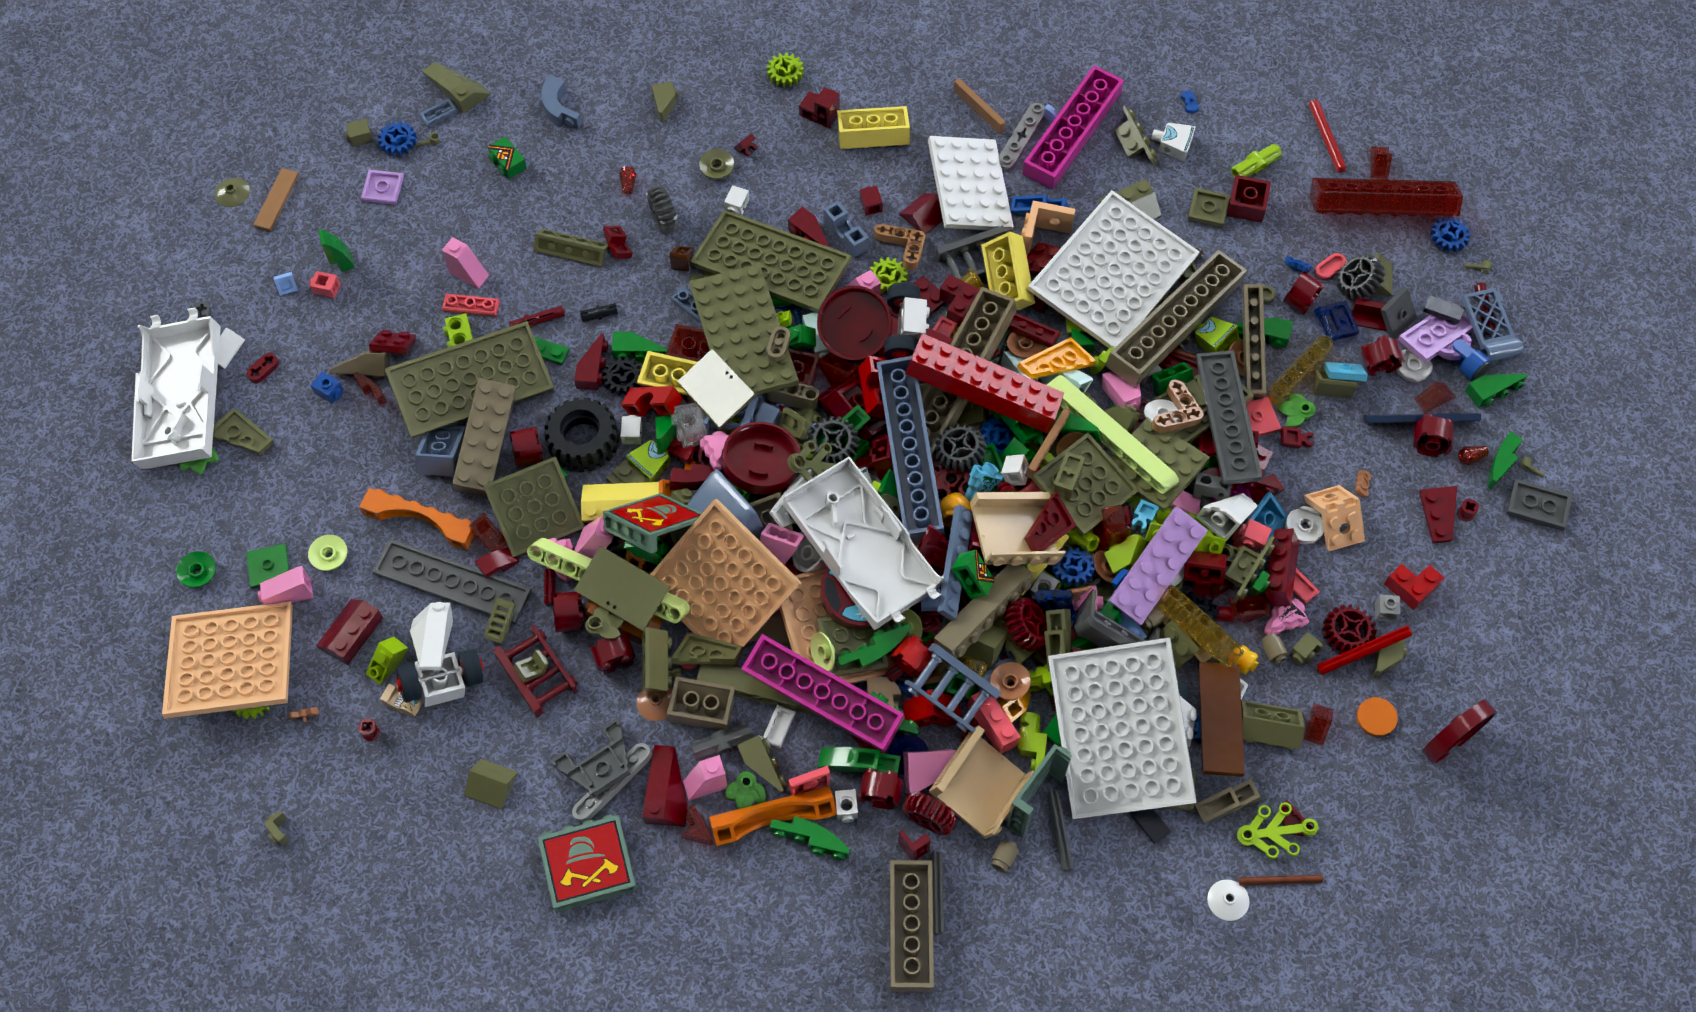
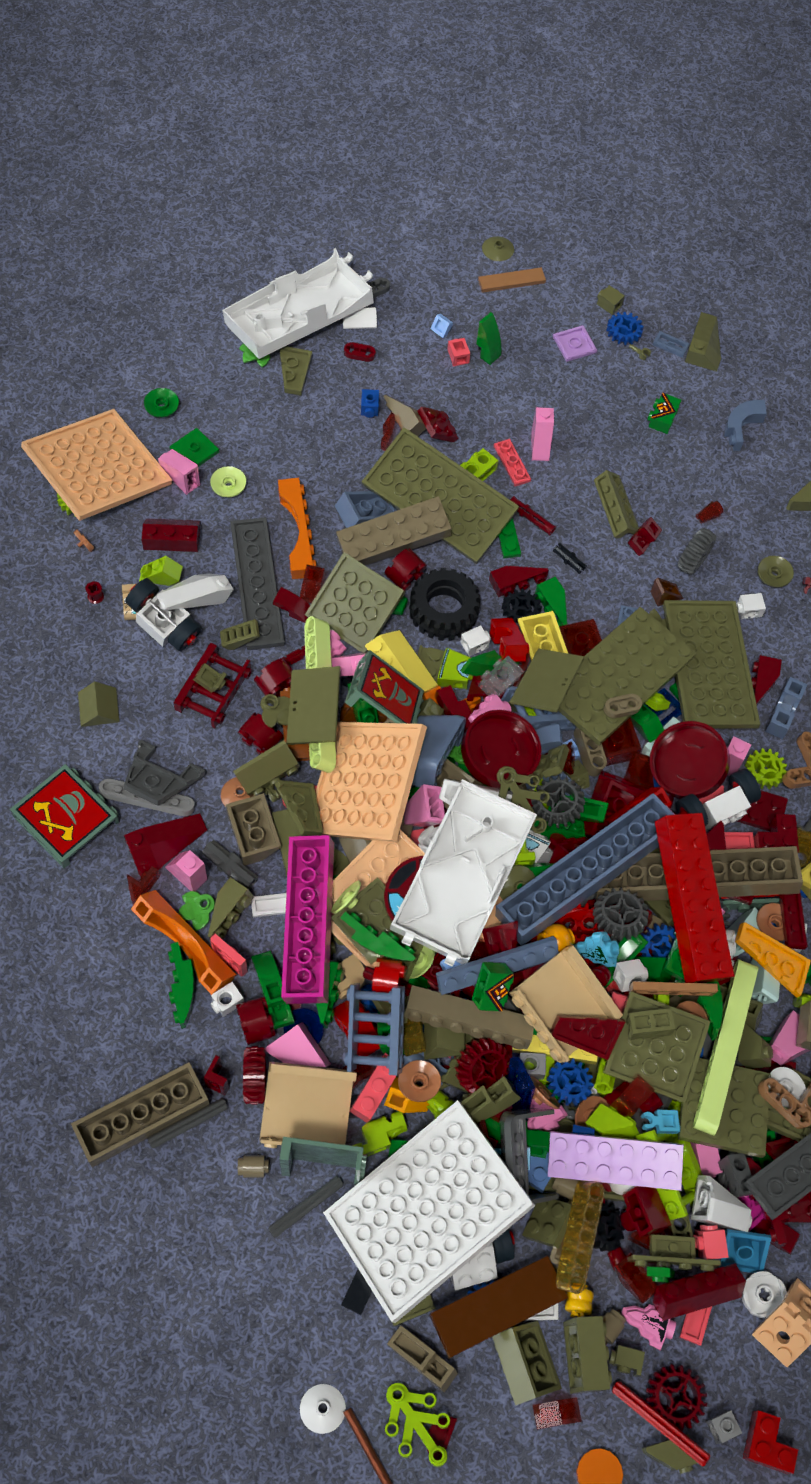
camera: 55 degrees right, 0 degrees up
(1289, 675) = (587, 1354): none -> olive slope

